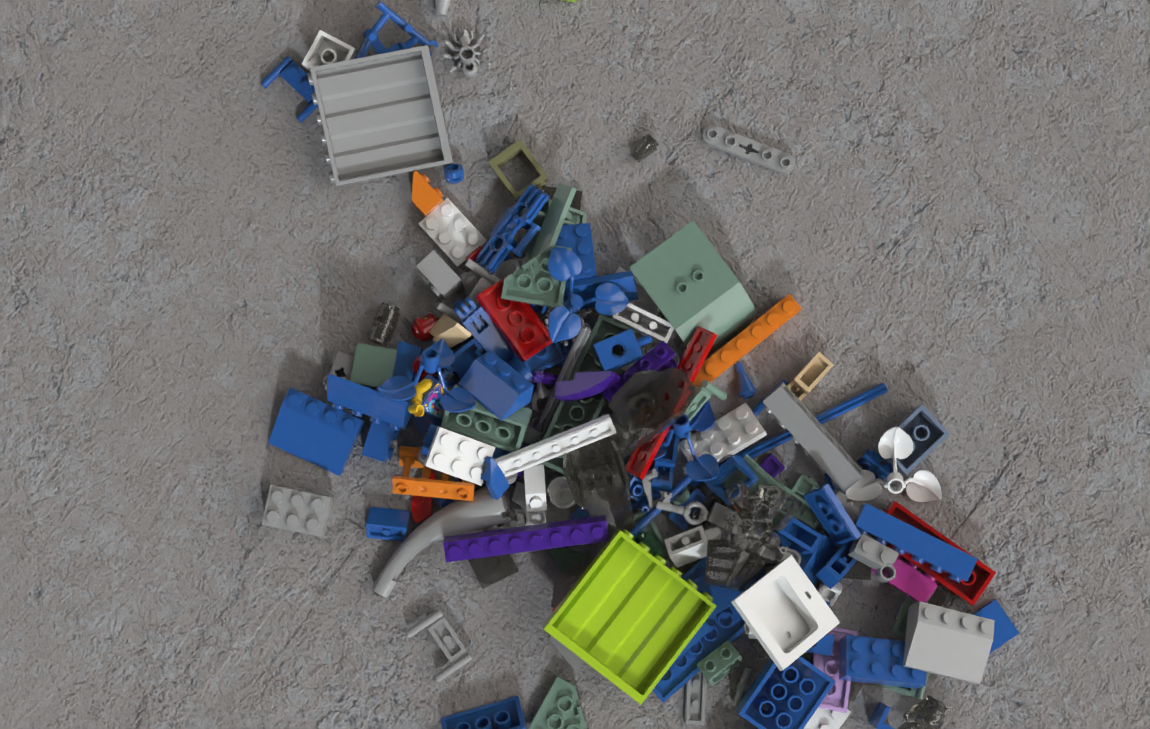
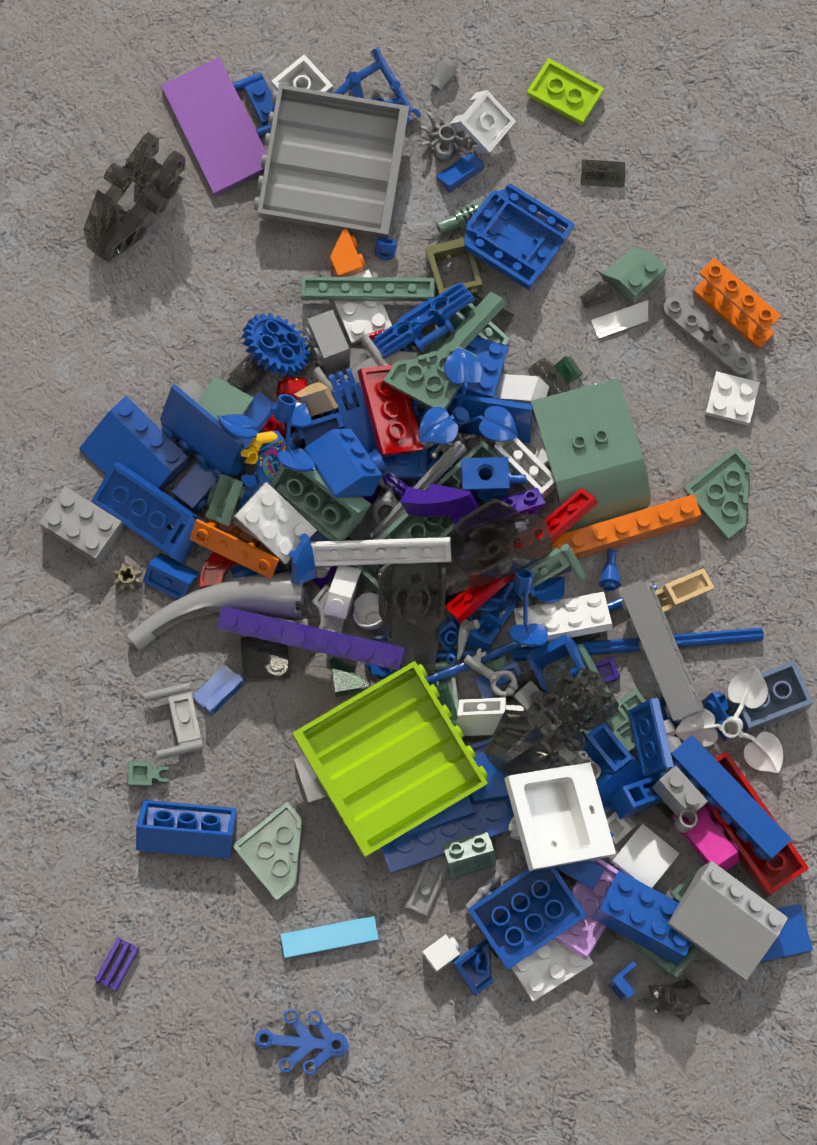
camera: 20 degrees right, 10 degrees down
(218, 244) = (108, 226): none -> clear smoke piece
(269, 118) = (216, 125): none -> medium lavender tile
(347, 478) = (147, 511): none -> blue hinge
(356, 535) = (125, 572): none -> dark tan gear
(397, 295) = (276, 345): none -> blue gear
(407, 447) = (223, 499): none -> sand green slope
(431, 698) = (142, 774): none -> sand green plate
(453, 216) = (367, 288): none -> sand green tile
(464, 603) = (219, 690): none -> panel
(490, 81) = (460, 171): none -> blue slope
(495, 32) = (484, 122): none -> white panel
(510, 120) = (458, 220): none -> sand green hinge
(558, 122) = (516, 234): none -> blue wedge
(609, 38) = (602, 173): none -> clear smoke slope
(615, 258) = (520, 388): none -> white brick
(627, 232) = (547, 373): none -> clear smoke piece
(643, 223) = (568, 369): none -> clear green slope
(668, 117) = (635, 274): none -> sand green slope
(672, 161) = (621, 319): none -> white sticker
(764, 115) = (736, 304): none -> orange fence
(788, 195) = (732, 398): none -> white plate
(811, 280) = (724, 493): none -> sand green plate
(860, 609) = (645, 856): none -> white slope

